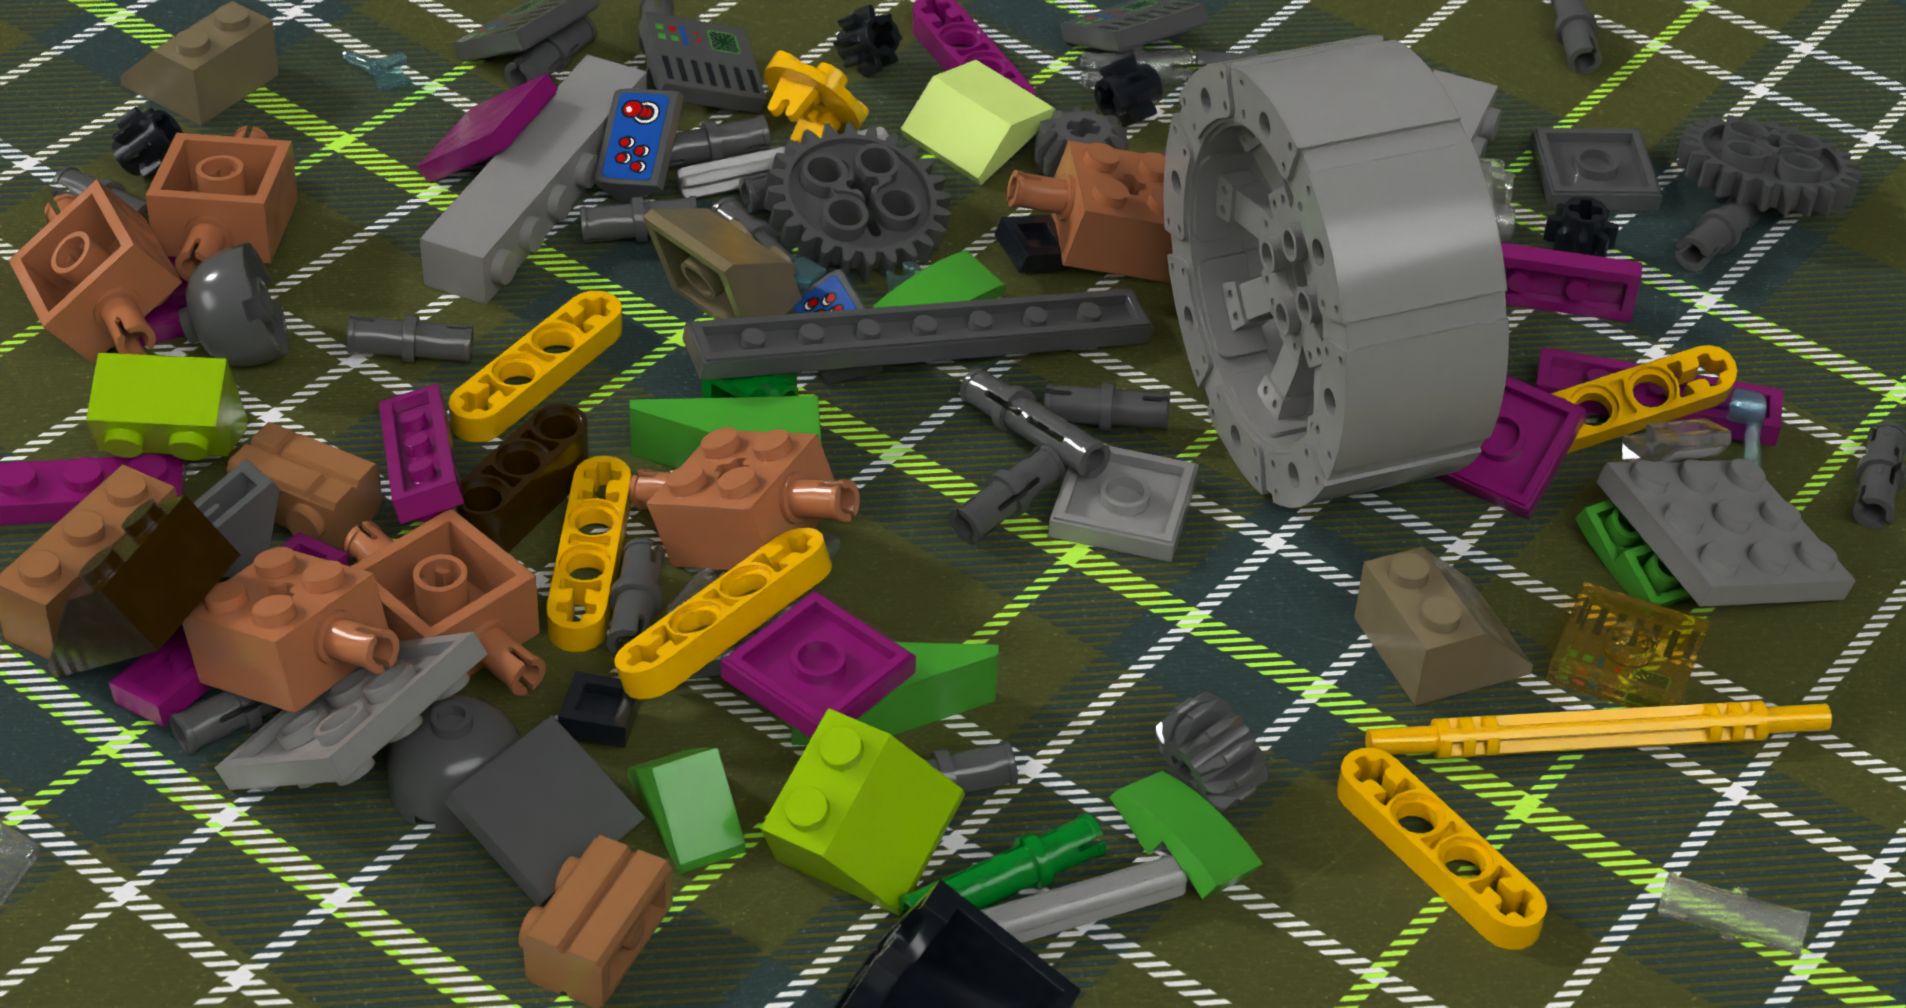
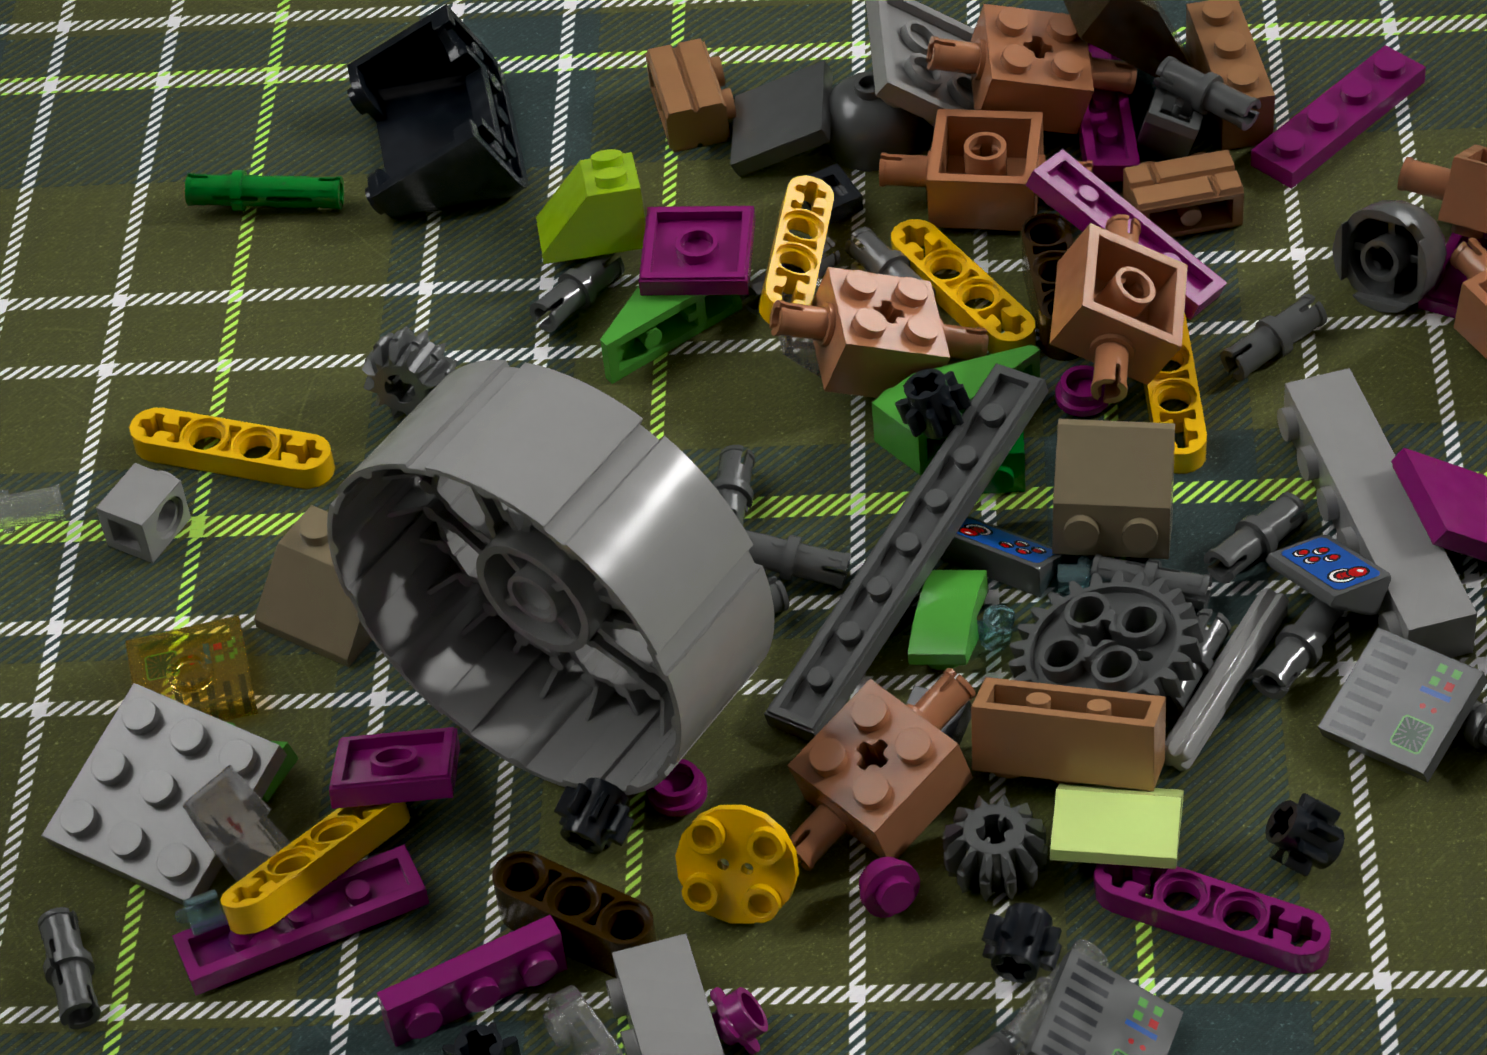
camera: 150 degrees right, 5 degrees up
(165, 406) = (1316, 157): lime slope -> none
(185, 468) = (1207, 93): none -> dark grey pin
(540, 352) = (1118, 306): none -> nougat brick
(609, 396) = (1074, 392): none -> magenta plate
(690, 806) = (723, 179): bright green slope -> none
(795, 366) = (932, 403): none -> black gear
(811, 96) = (1249, 736): yellow plate -> none
(960, 144) = (1068, 734): none -> medium nougat brick
(1028, 863) = (461, 295): green pin -> none
(1091, 899) = (441, 265): light grey axle -> none
(1200, 838) = (364, 330): bright green slope -> none
(1585, 809) = (143, 512): none -> light grey brick
(1599, 729) = (169, 595): yellow axle -> none

